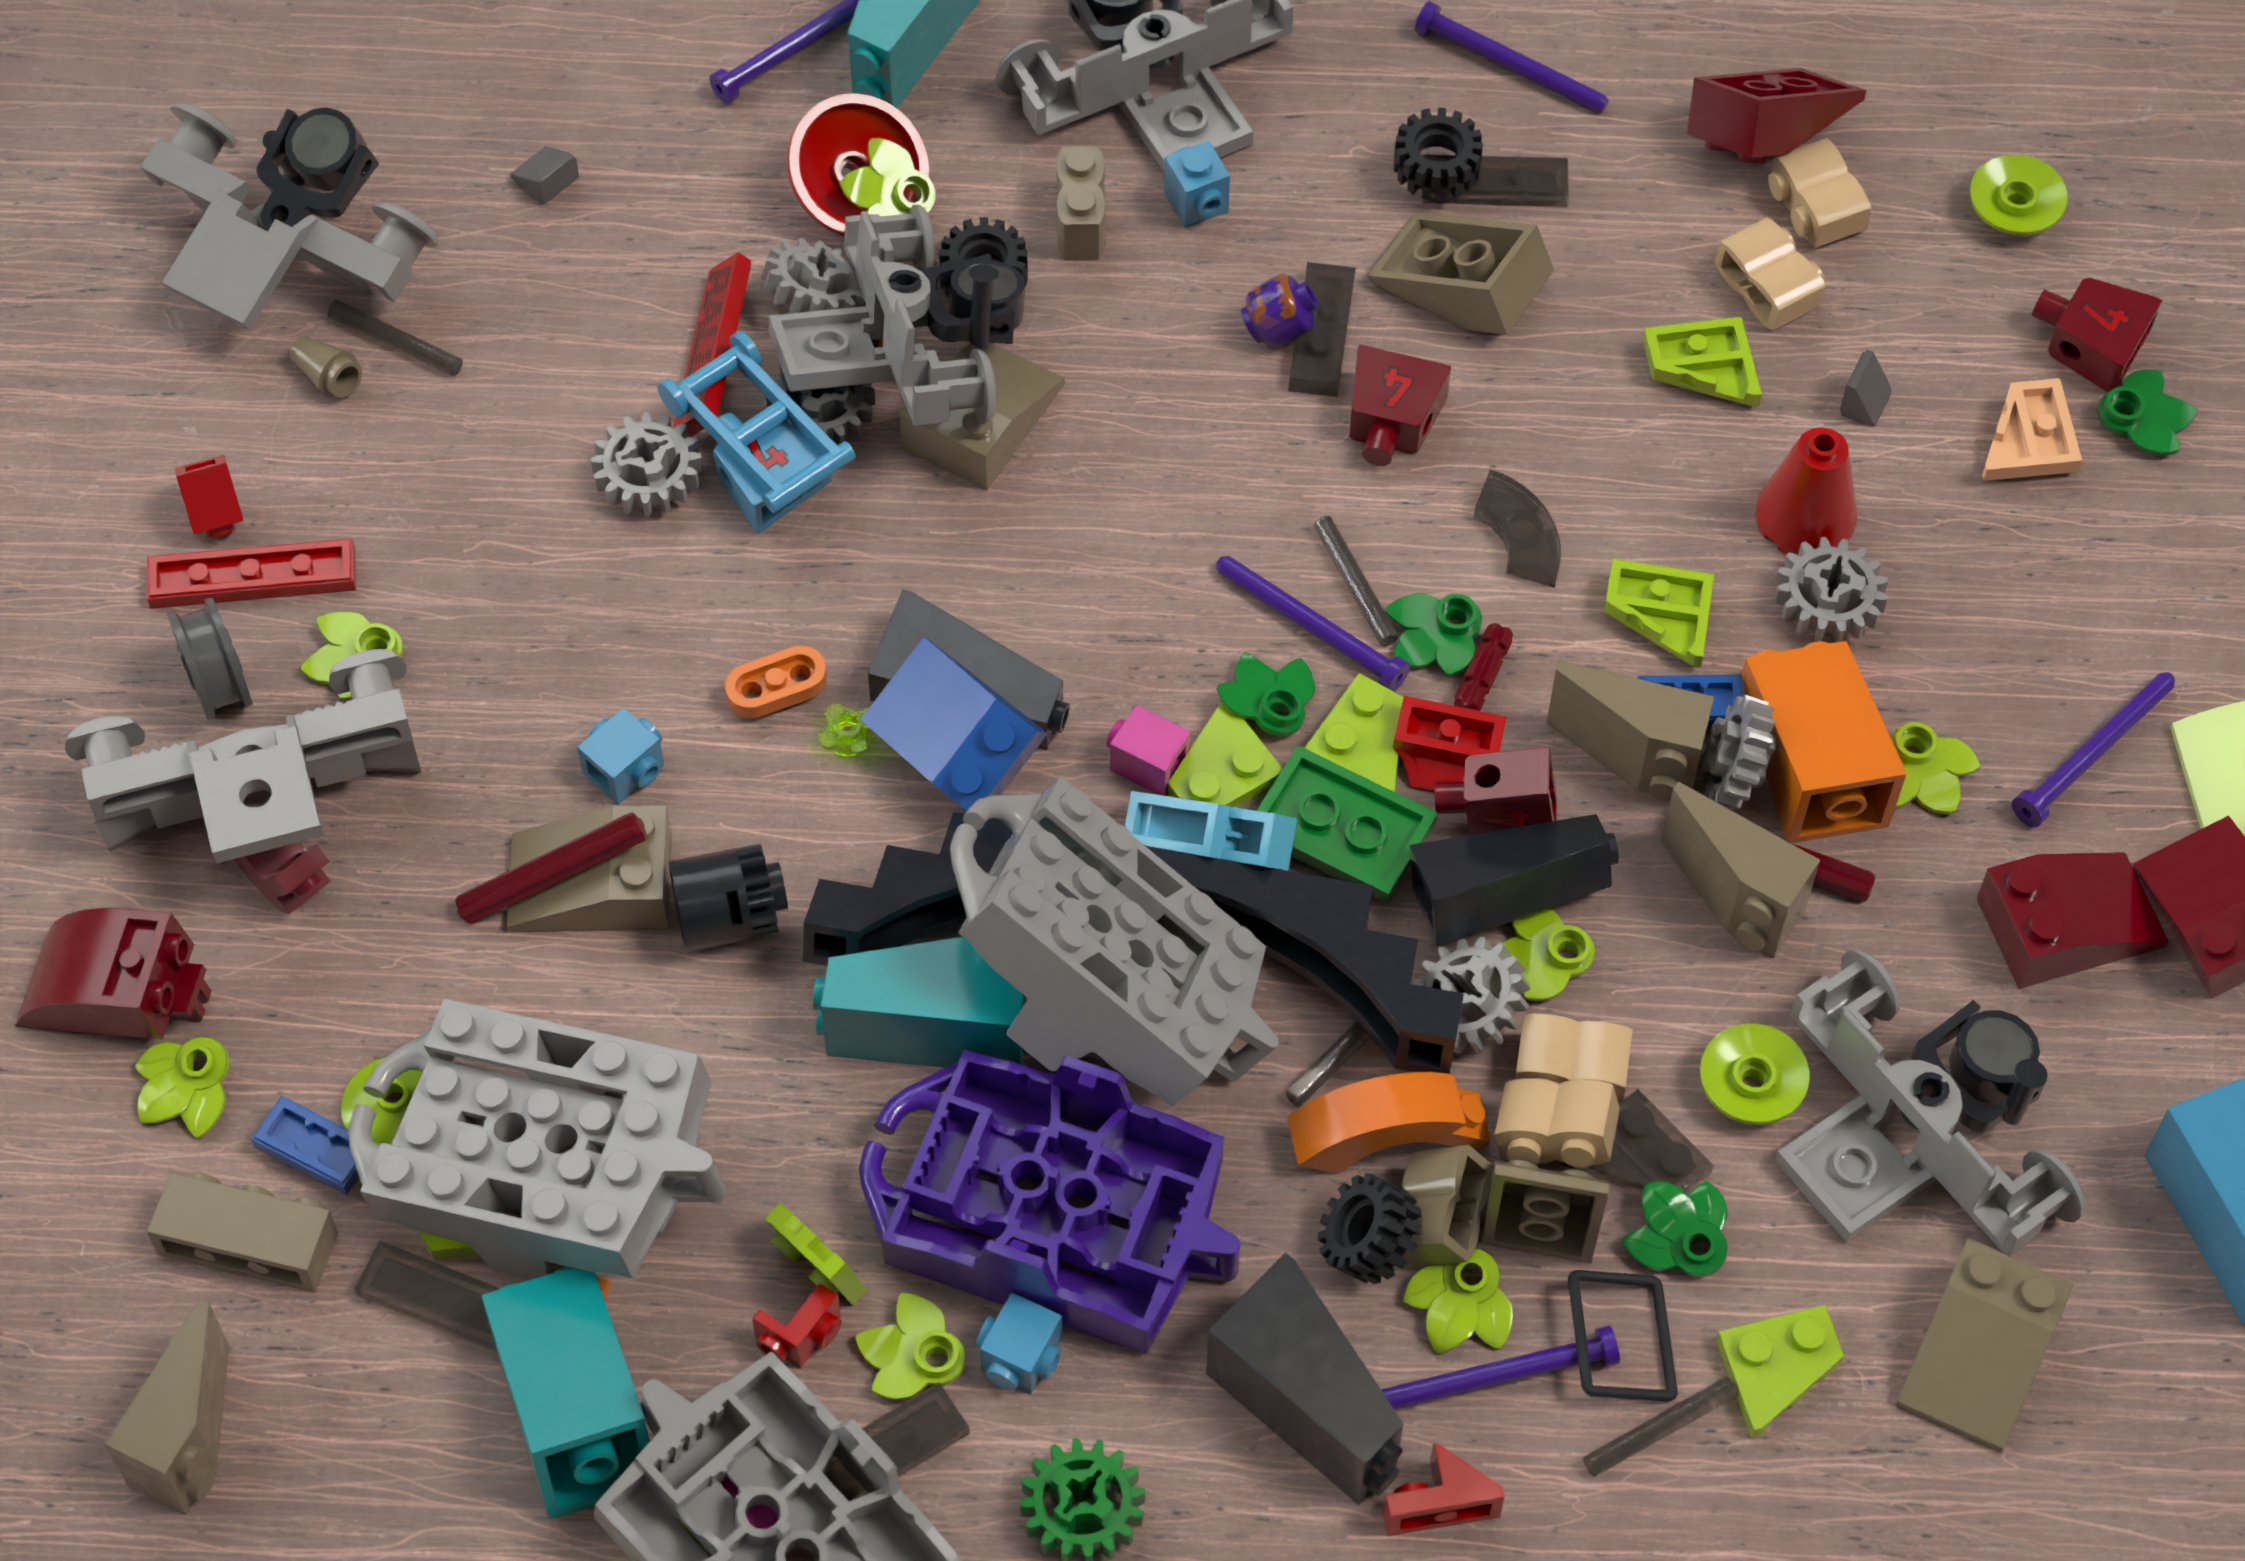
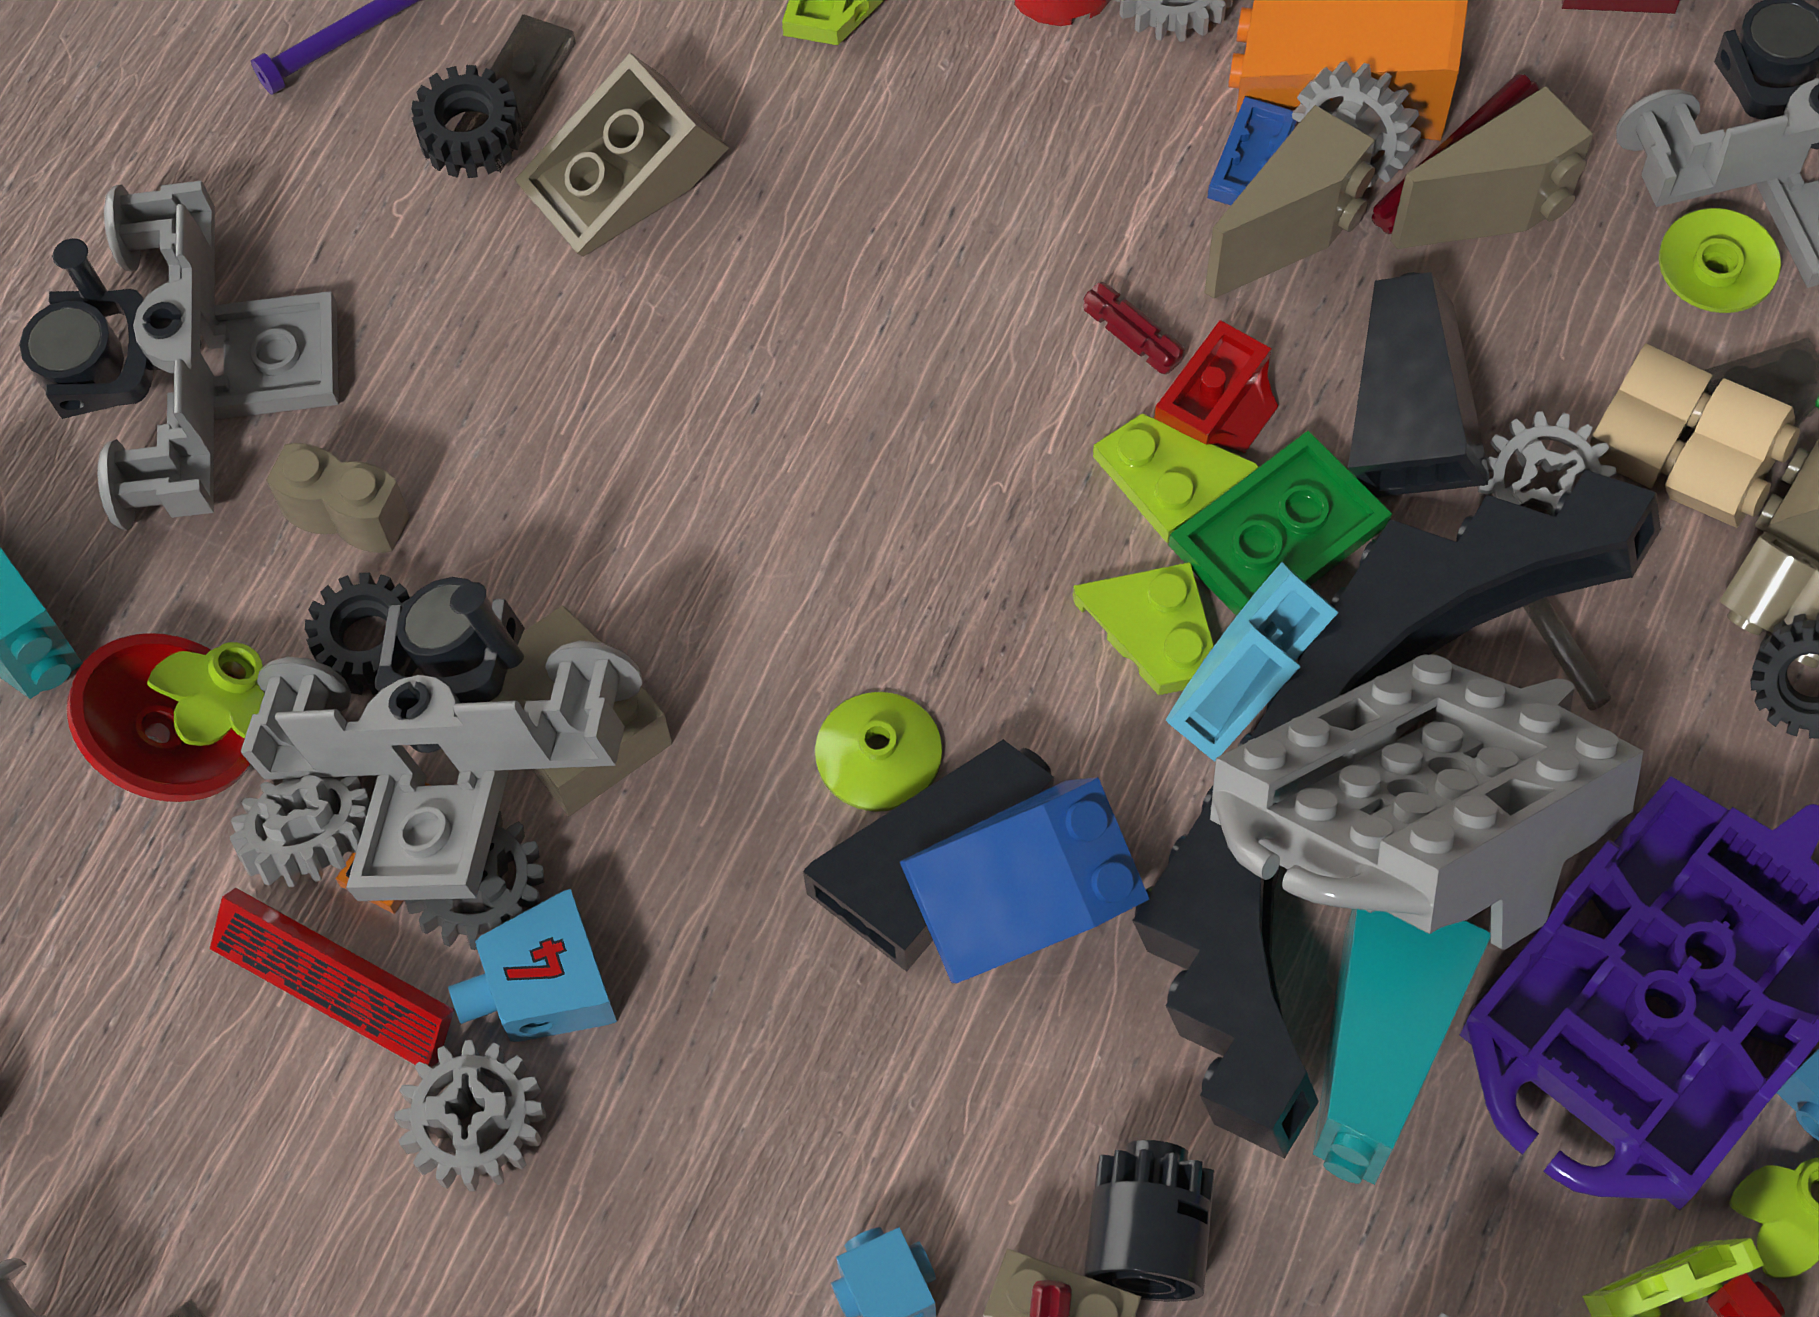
camera: 65 degrees left, 5 degrees up
(745, 355) = (390, 935): dark azure piece -> none
(773, 680) = (850, 1069): orange plate -> none
(845, 742) = (952, 1026): clear neon green plate -> none
(1043, 638) = (884, 776): none -> lime dish
(1147, 749) = (1113, 688): dark pink brick -> none
(1196, 183) = (375, 370): dark azure brick -> none
(1262, 692) = (1082, 543): green plate -> none
(1279, 310) = (592, 348): dark purple head -> none
(1320, 352) = (623, 323): clear smoke tile -> none
(1356, 581) = (967, 408): clear smoke bar -> none
(1385, 1113) = (1683, 620): orange arch -> none
(1390, 672) = (1103, 415): dark purple bar -> none
(1395, 402) = (762, 286): dark red torso -> none
(1429, 634) = (1070, 362): green plate -> none
(1502, 790) = (1319, 354): dark red torso -> none
(1523, 526) = (970, 227): clear smoke tile -> none
(1537, 948) = (1502, 401): lime plate -> none
(1662, 605) = (1128, 136): lime wing -> none

